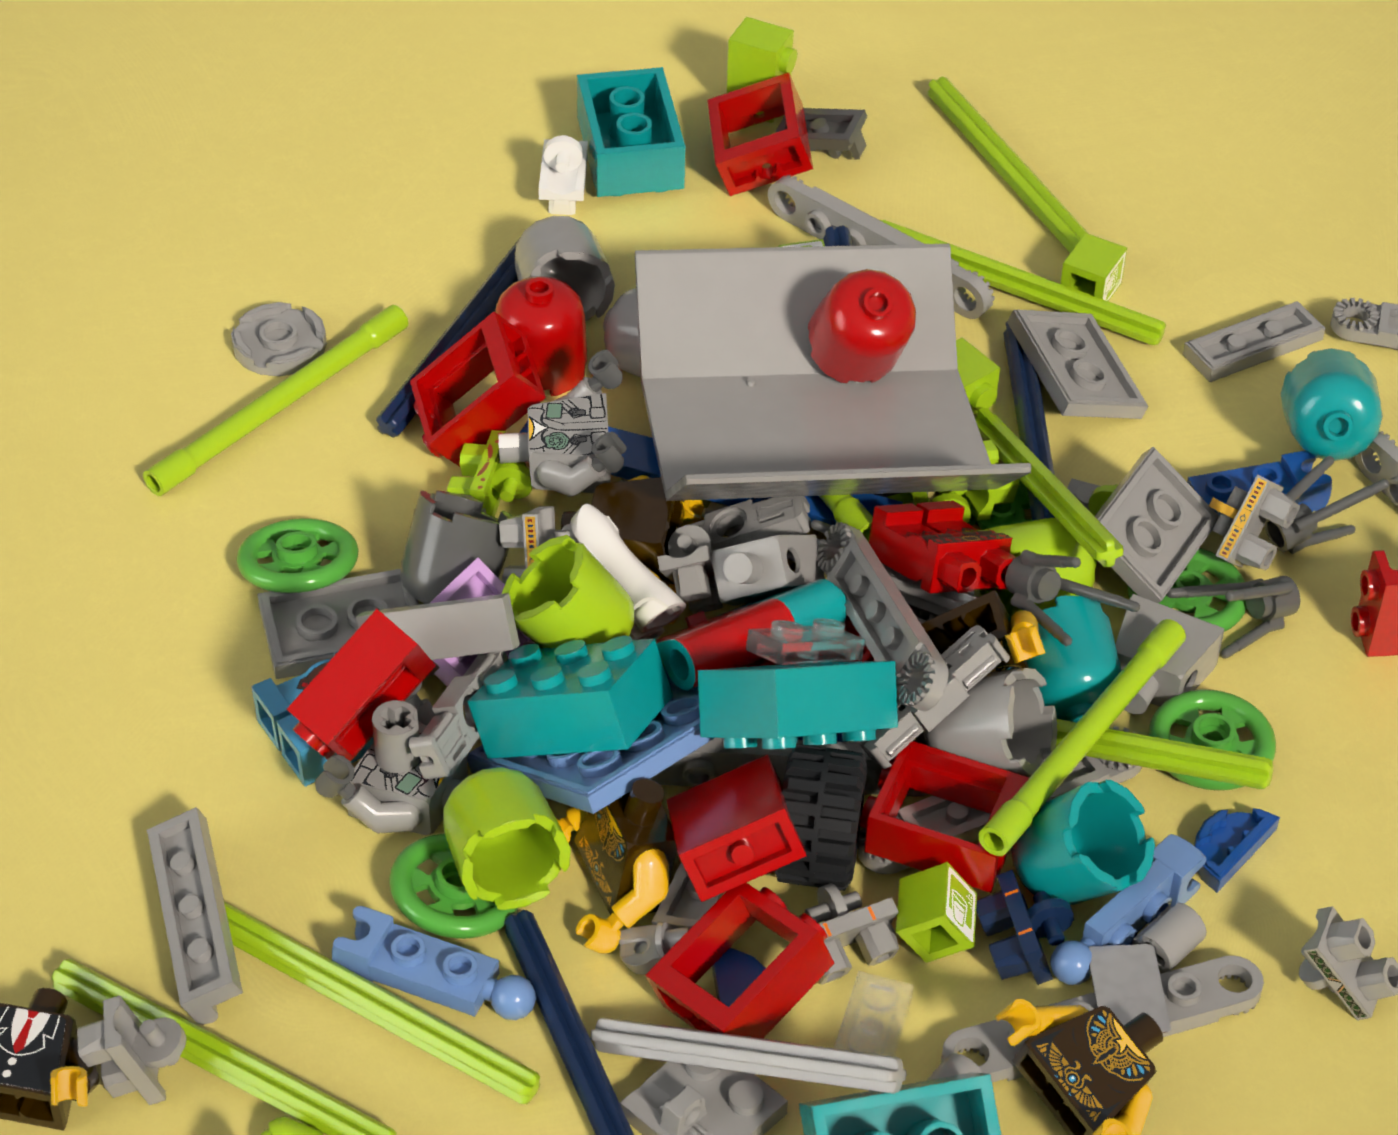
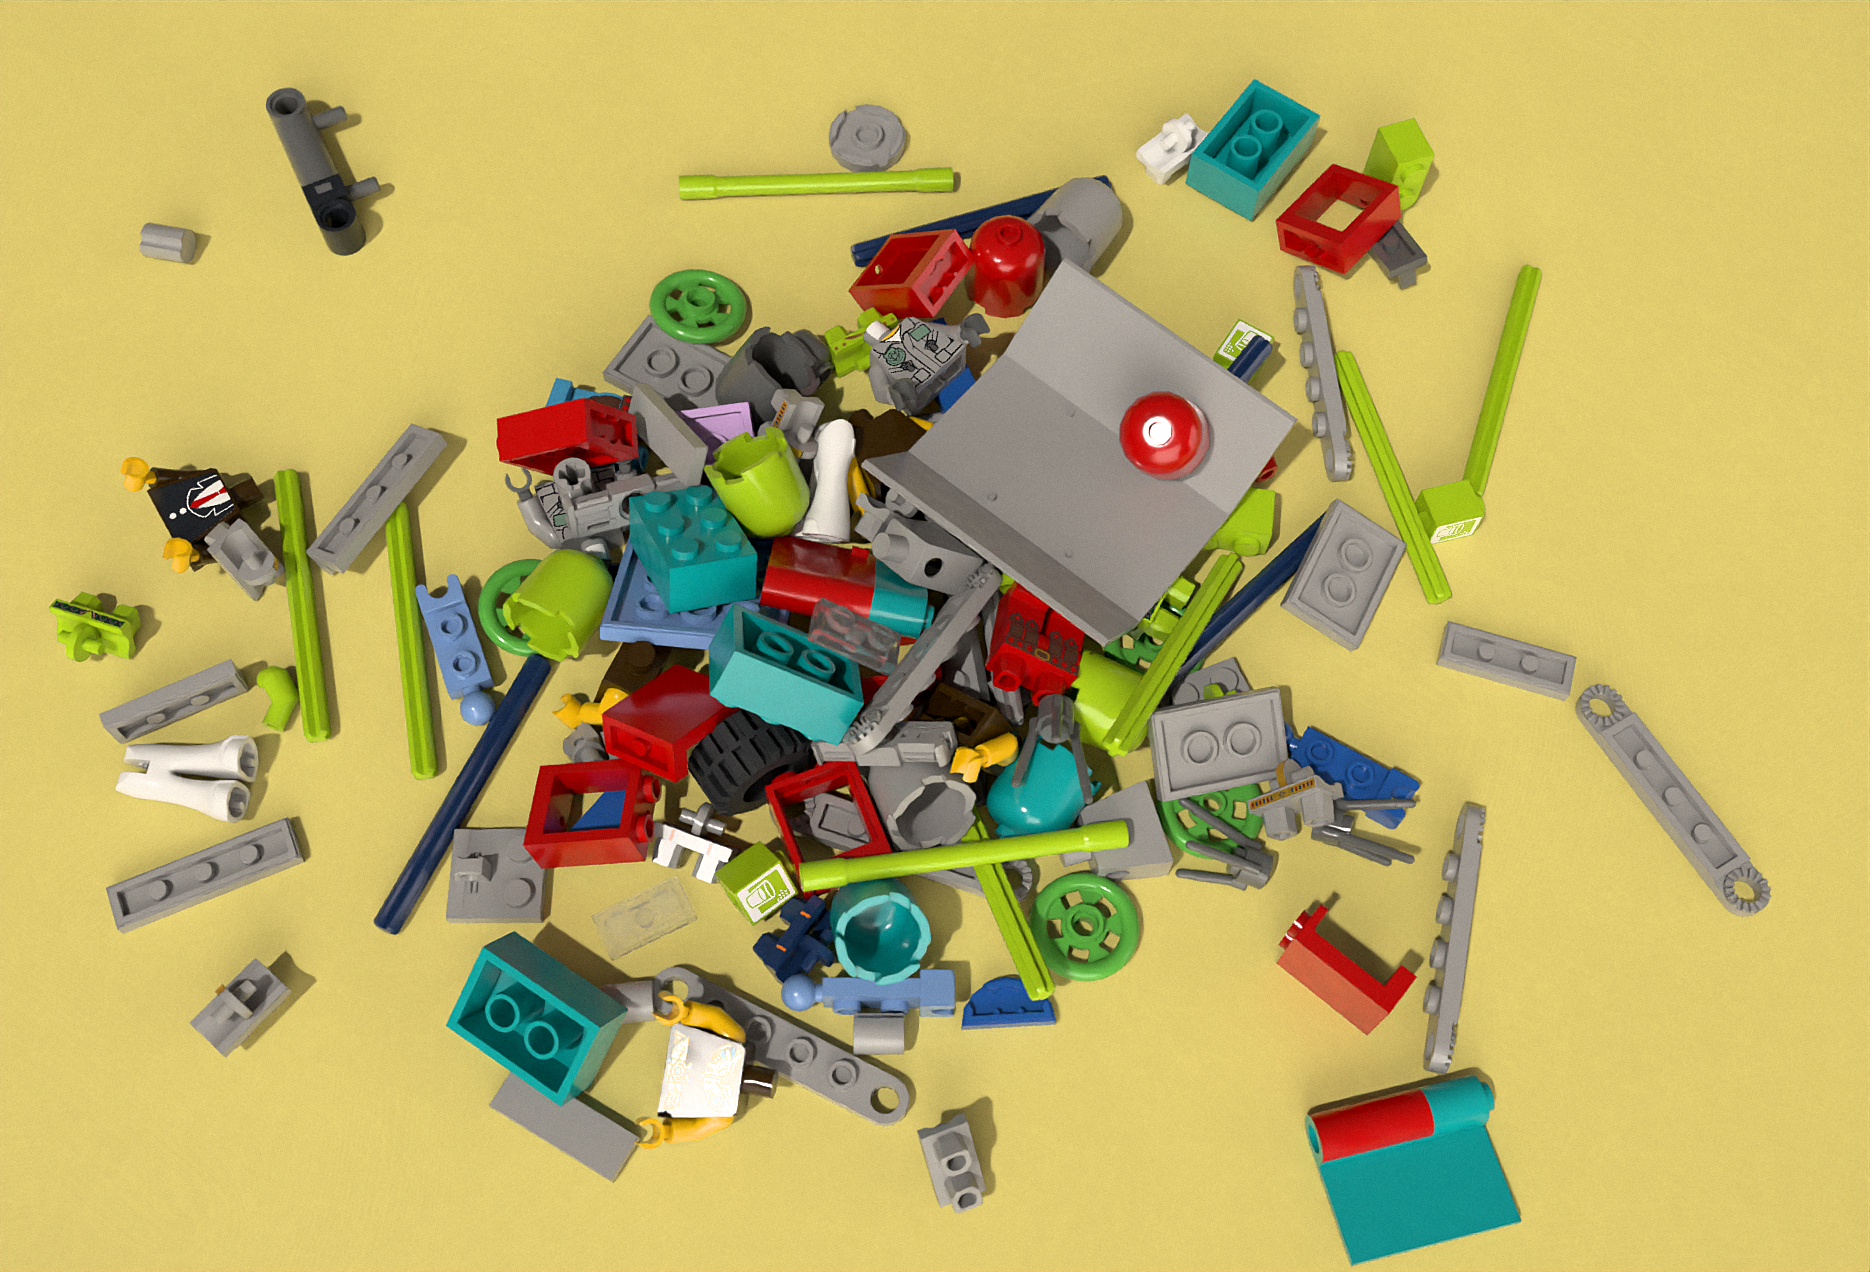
camera: 45 degrees right, 20 degrees up
(750, 1055) = (519, 878): light grey axle -> none
(1129, 982) = (804, 1043): flat silver sticker -> none
(1332, 404) = (1465, 765): teal cylinder -> none

